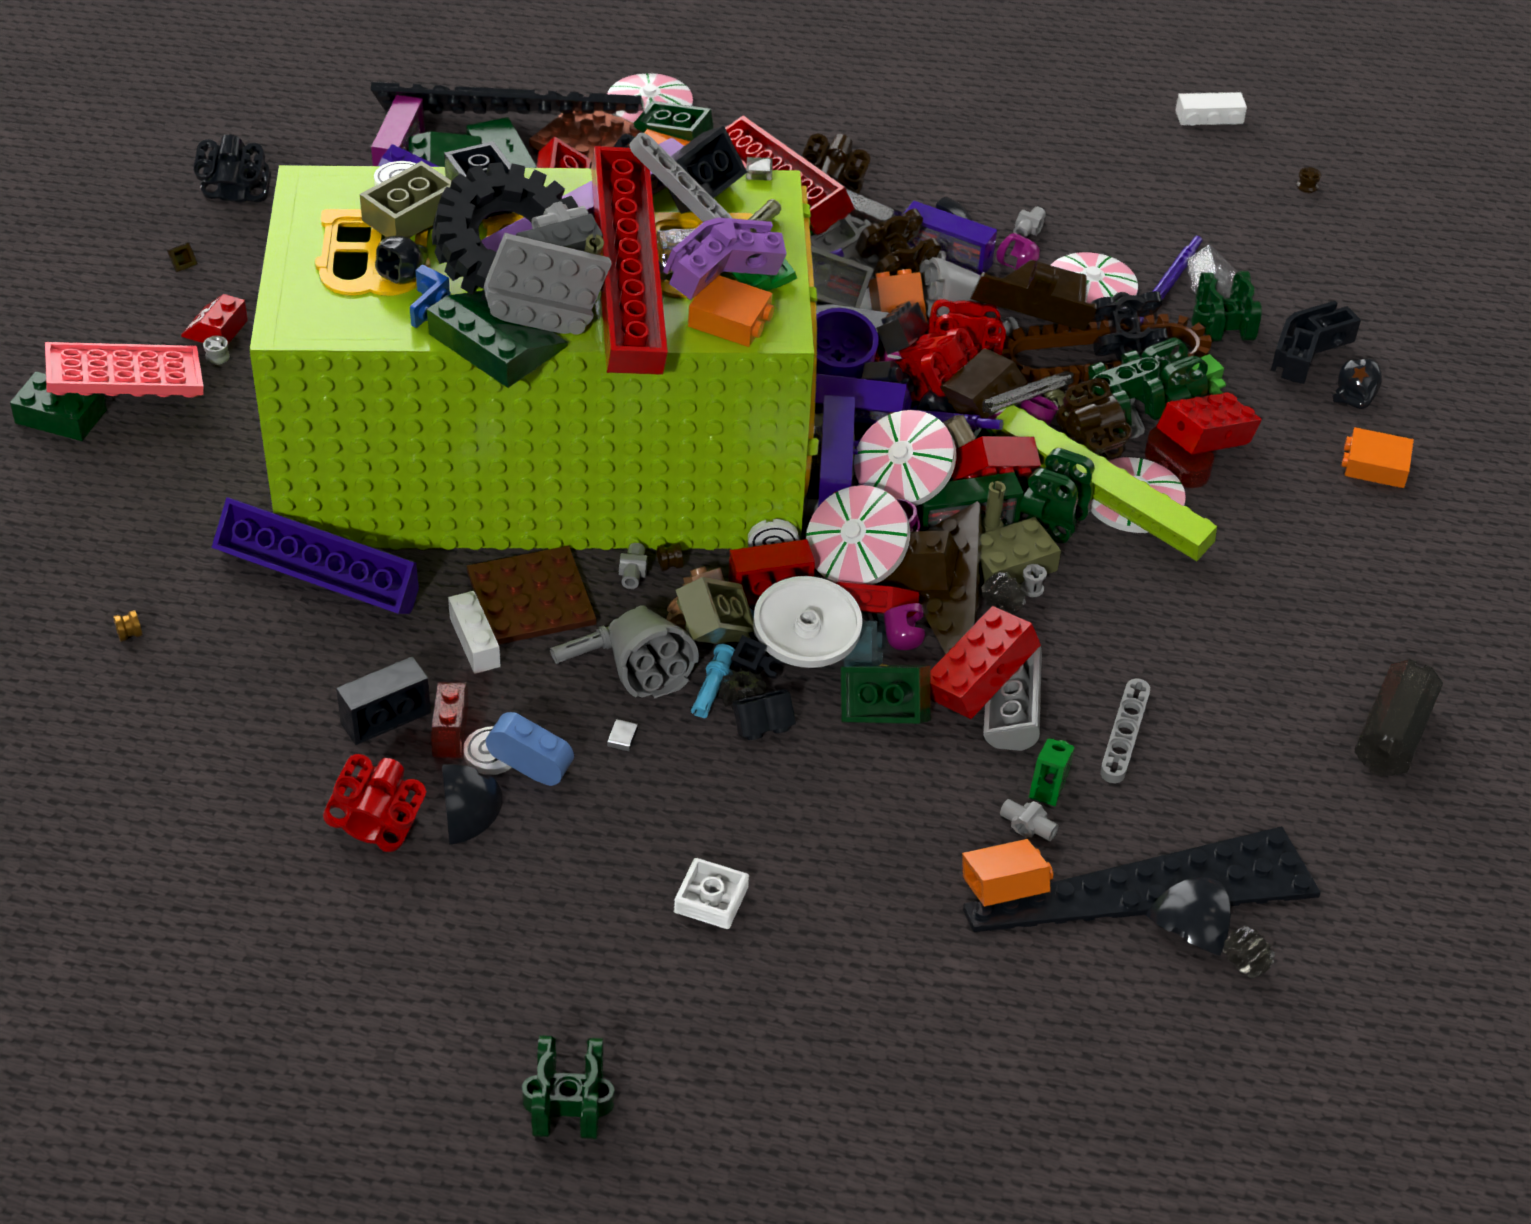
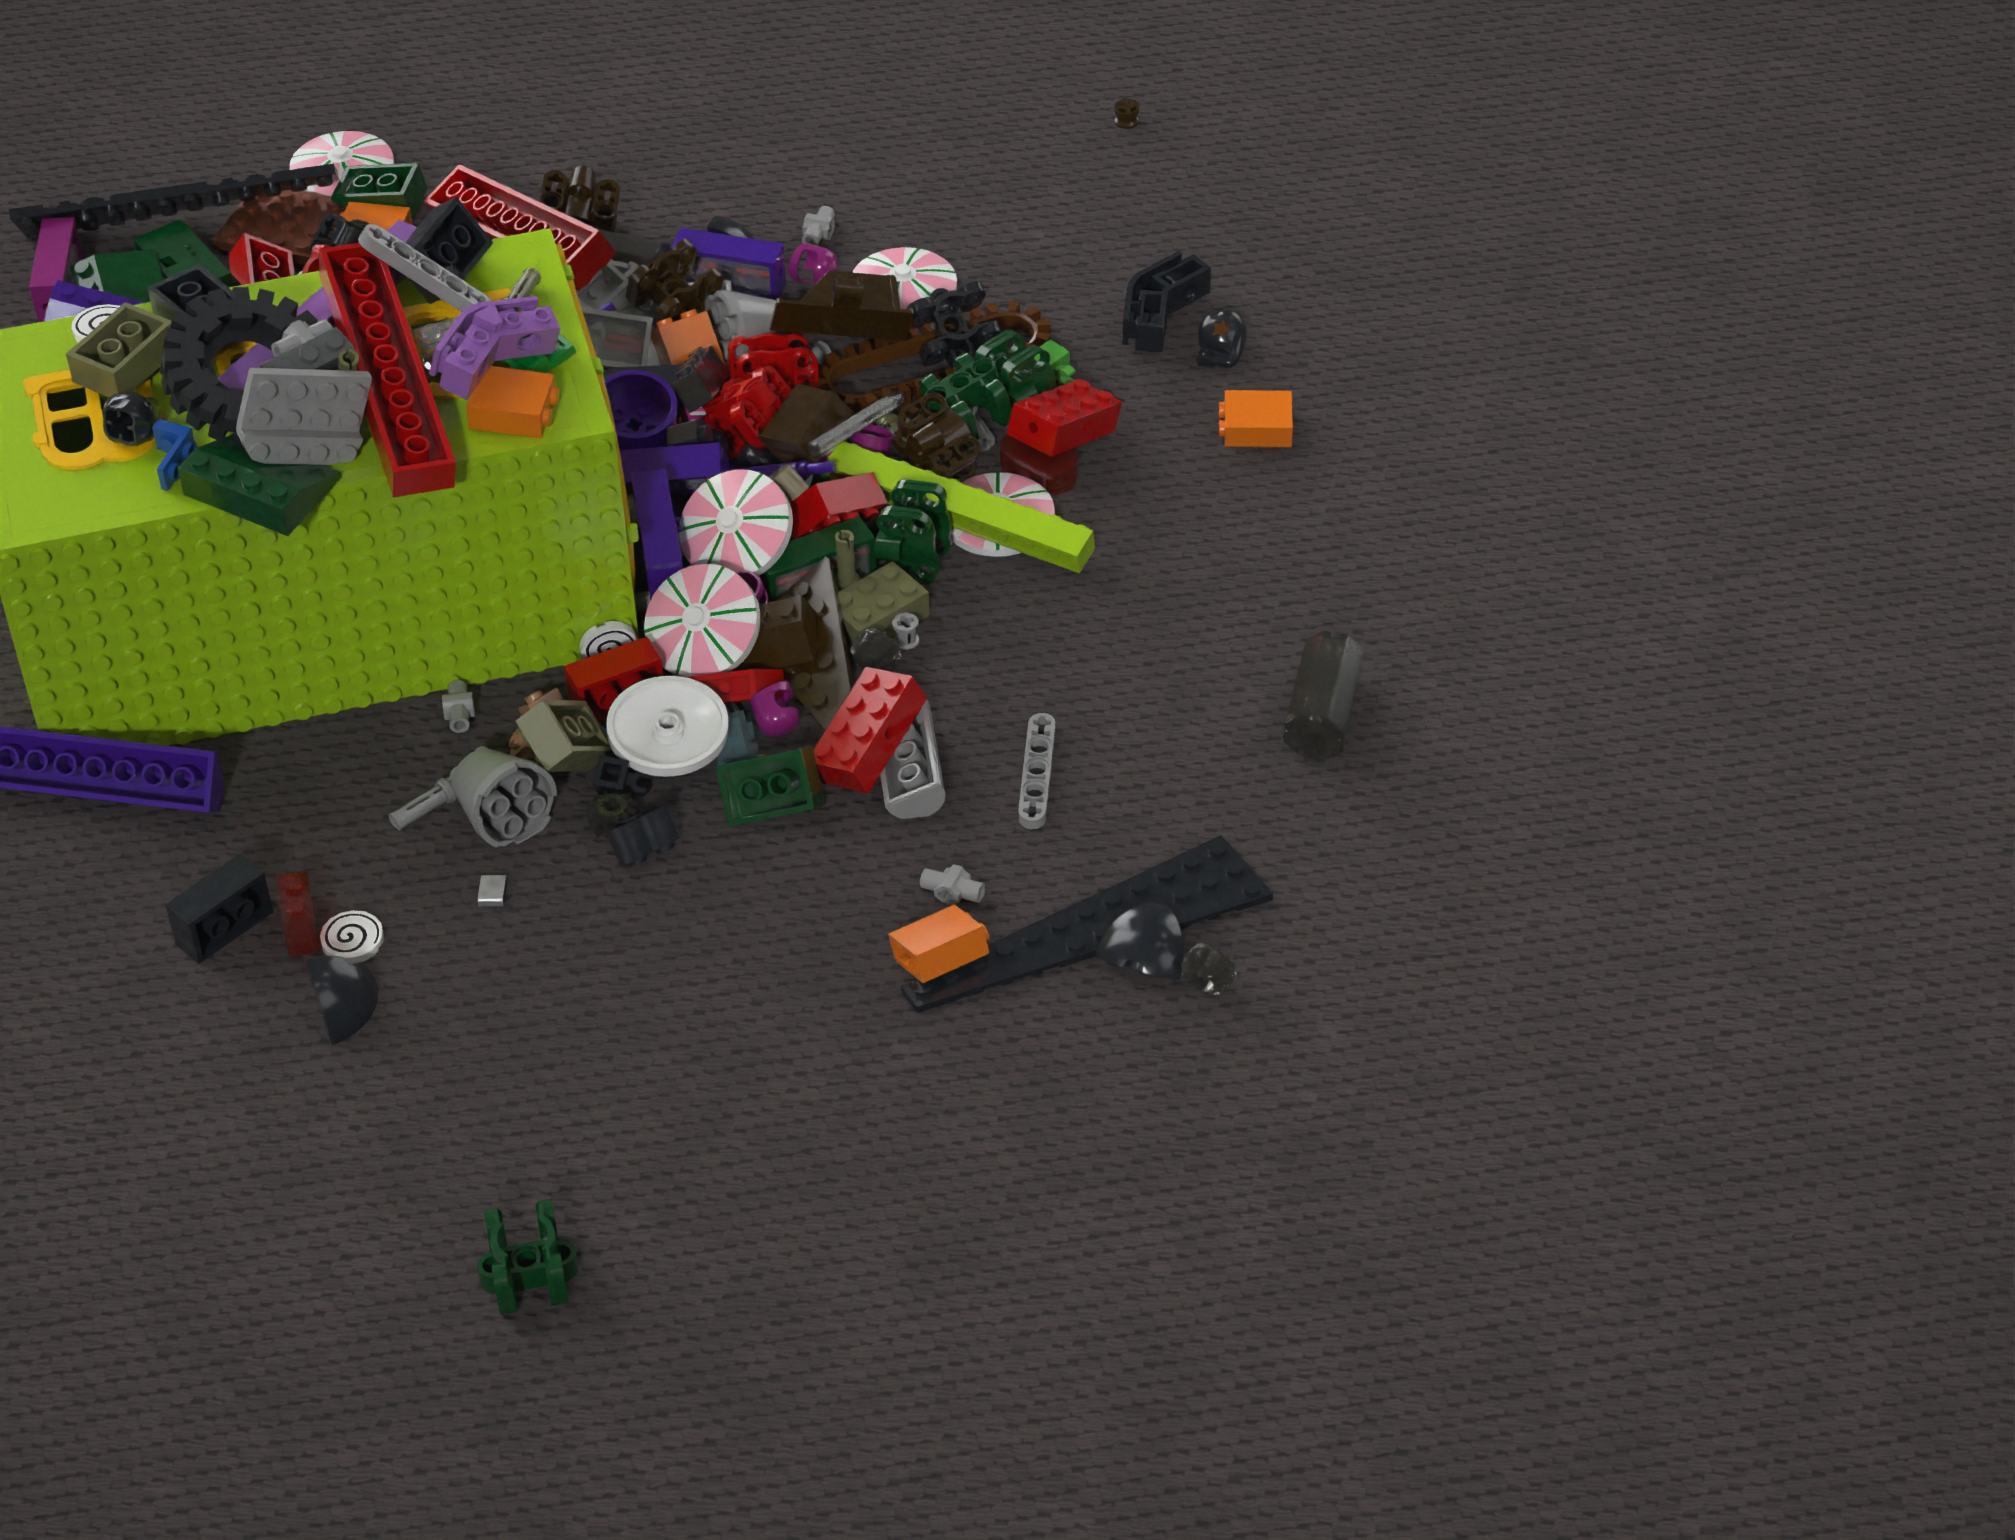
camera: 10 degrees left, 0 degrees up
(375, 801) = (241, 1015): red piece -> none
(474, 632) = (299, 814): white brick -> none
(529, 748) = (395, 925): medium blue brick -> none
(532, 594) = (351, 762): copper plate -> none
(670, 556) = (497, 688): dark brown wheel -> none
(711, 893) = (629, 1032): white brick -> none
(715, 671) = (578, 803): medium azure pin -> none
(759, 168) = (505, 235): clear smoke tile -> none
(1054, 759) = (965, 816): green torso -> none
(1176, 269) = (996, 248): dark purple axle -> none
(1211, 108) = (1000, 49): white brick -> none
(1211, 261) = (1039, 248): clear slope -> none
(1223, 314) = (1061, 289): dark green piece -> none

